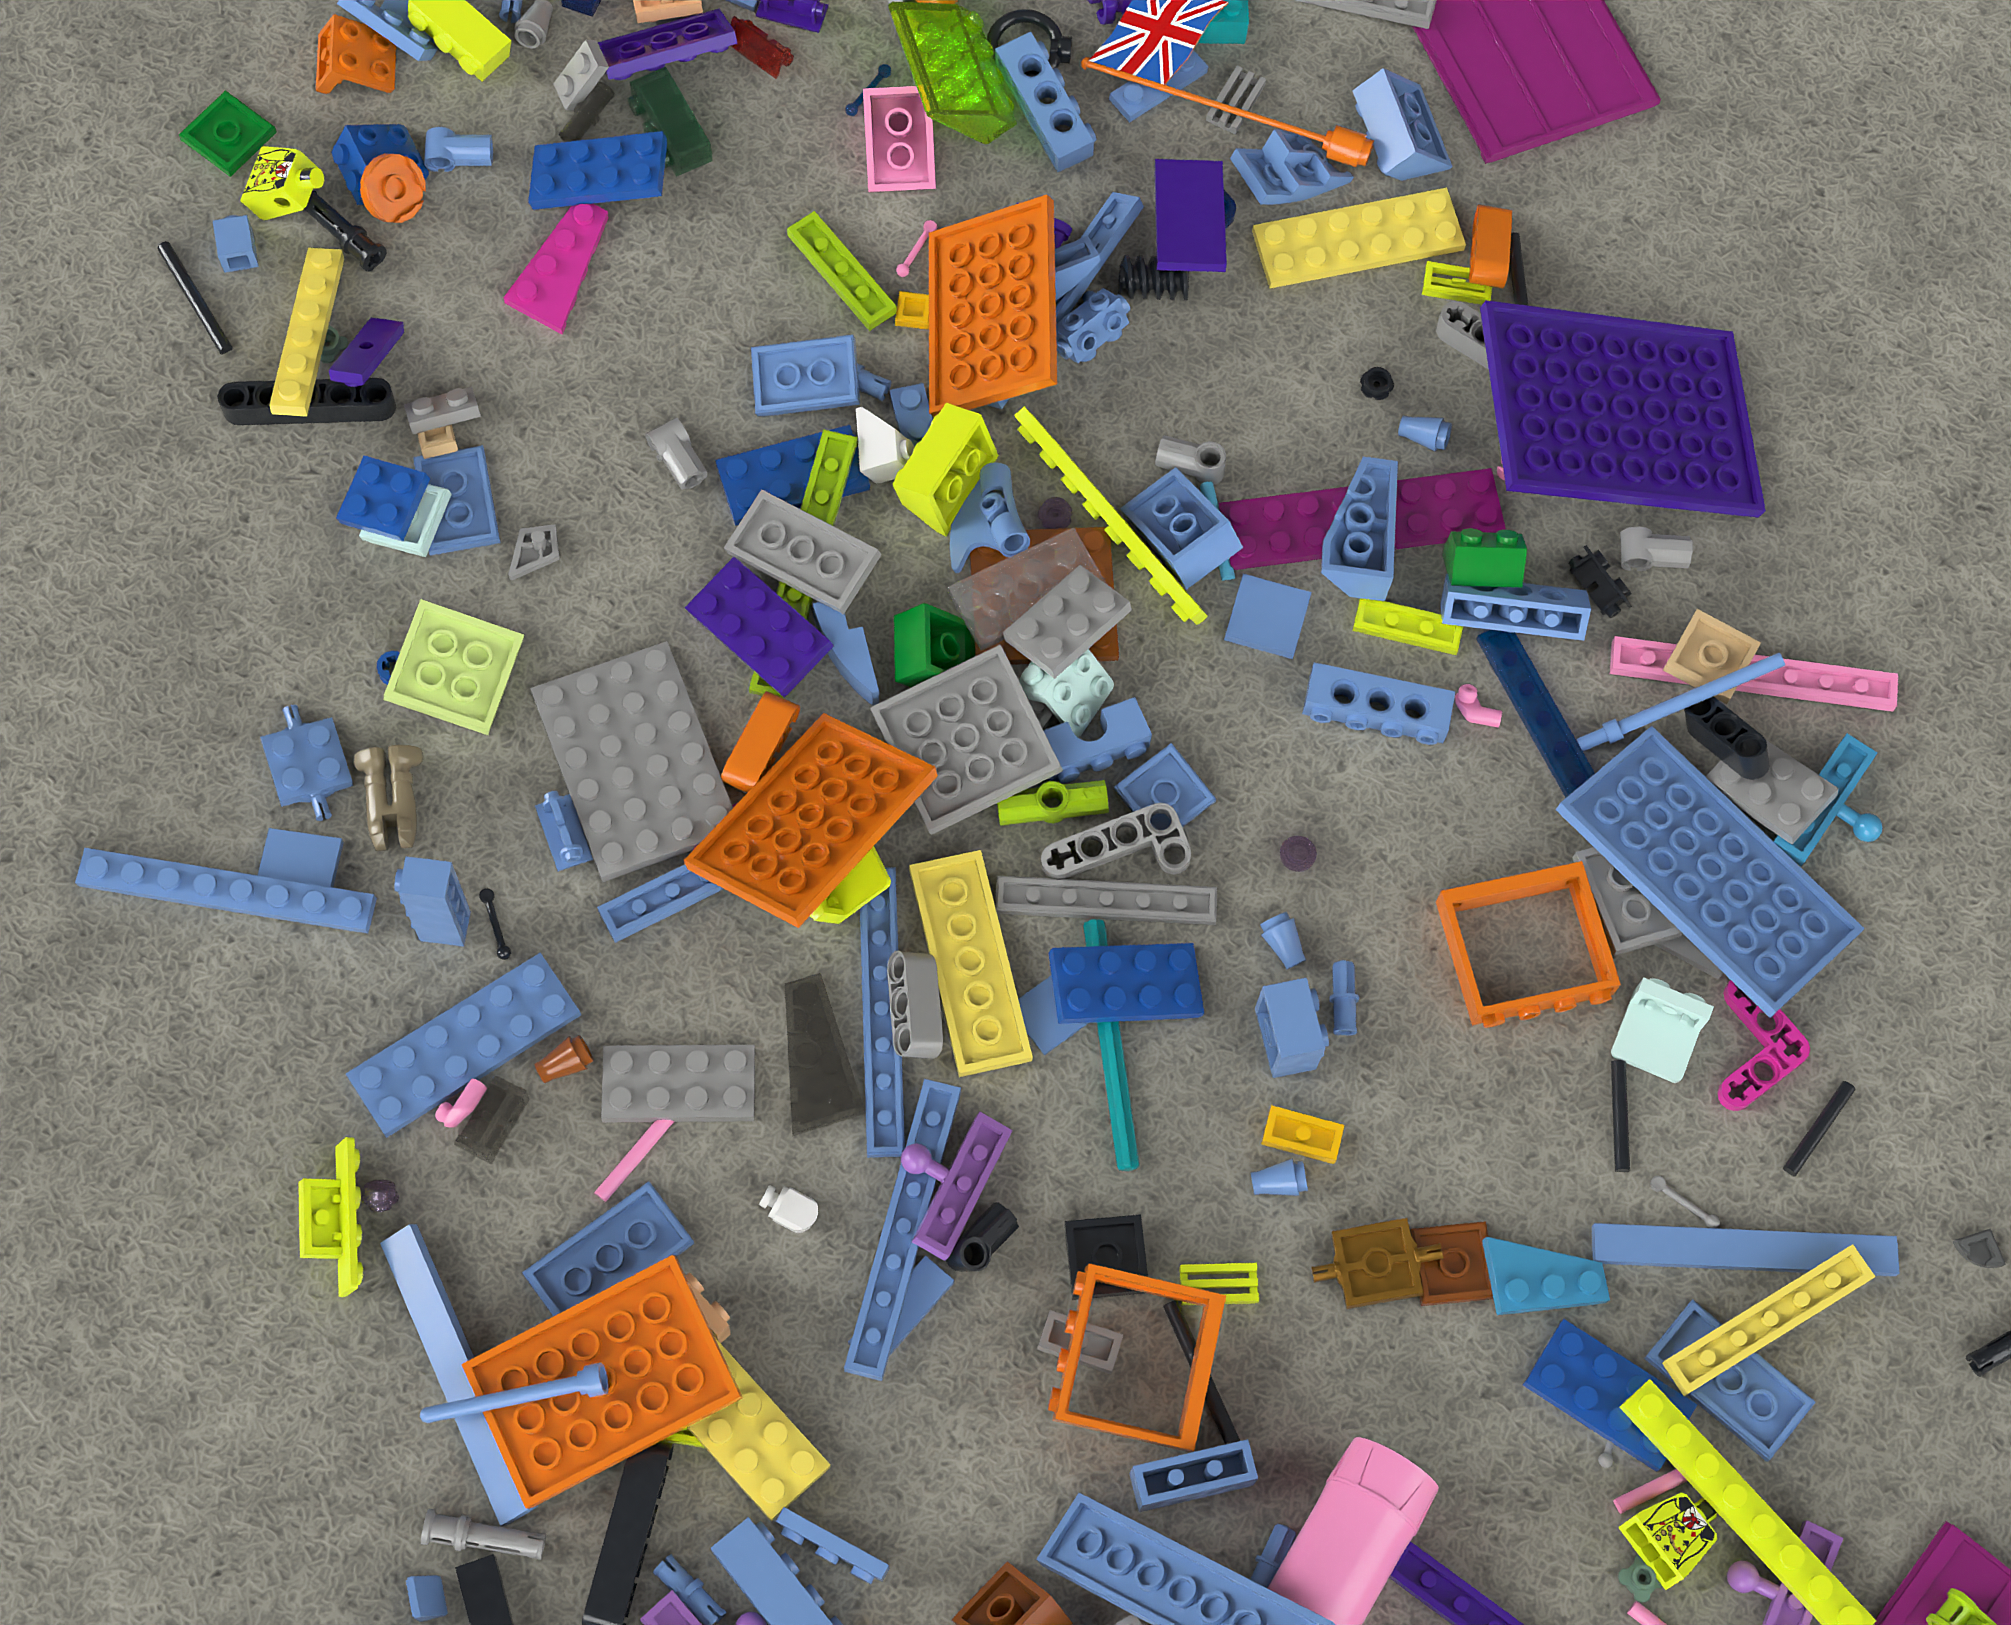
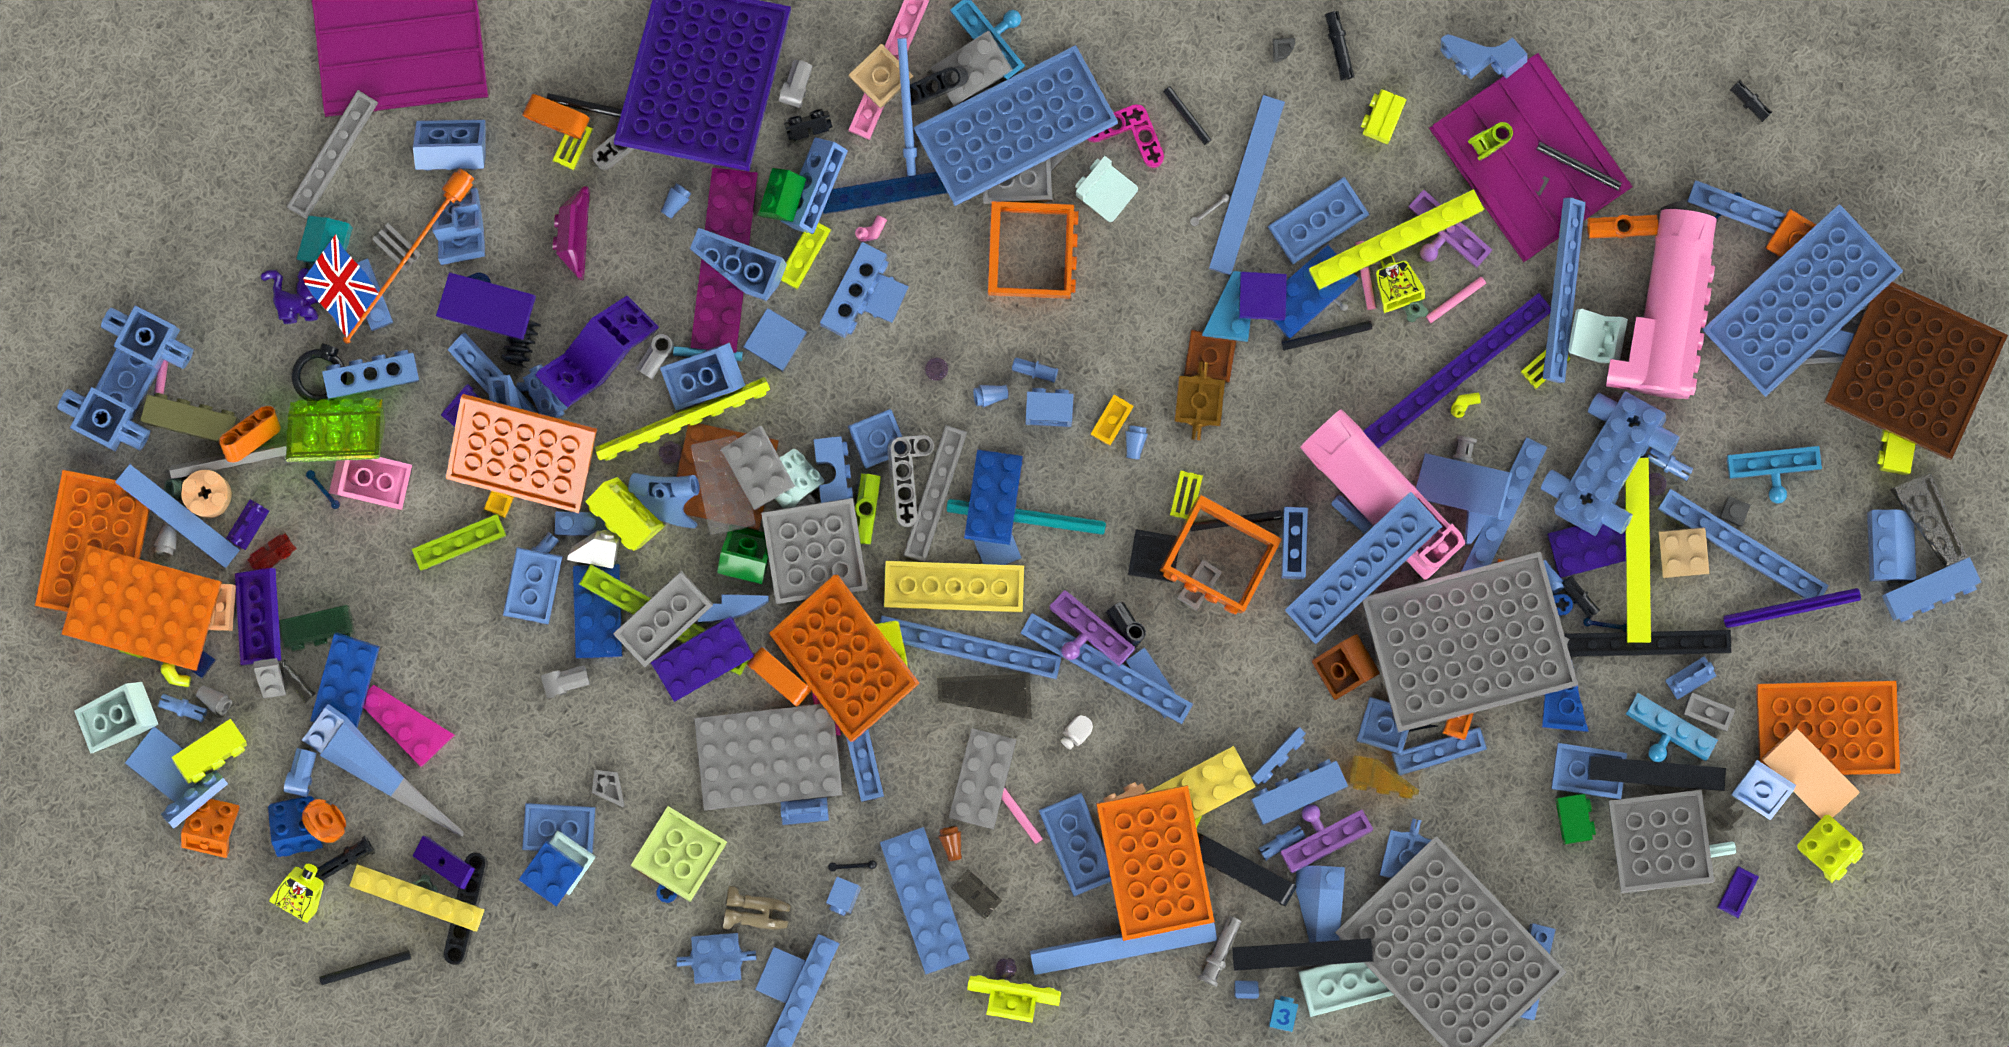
camera: 70 degrees left, 15 degrees up
(227, 133) = (244, 922): green tile -> none
(235, 243) = (334, 932): medium blue brick -> none
(437, 441) = (514, 831): tan tile -> none
(442, 410) = (493, 824): light grey plate -> none
(466, 1103) = (960, 903): bright pink arm -> none
(503, 198) = (348, 748): none -> medium blue plate
(589, 1381) = (1156, 869): medium blue piece -> none
(903, 269) = (439, 476): bright pink hinge -> none
(915, 1005) = (973, 626): light grey beam -> none
(1172, 369) = (597, 351): none -> dark purple bracket
(1335, 309) = (572, 231): none -> magenta wedge
(1358, 237) = (522, 198): light yellow plate -> none
(1380, 376) = (628, 216): black plate -> none
(1381, 756) = (886, 298): none -> medium blue piece
(1549, 1444) = (1327, 335): none -> black bar
(1579, 1315) = (1262, 296): none -> dark purple tile
(1620, 1116) = (1148, 229): black bar -> none
(1768, 1320) = (1293, 187): light yellow plate -> none
(1937, 1440) = (1384, 116): none -> neon yellow brick

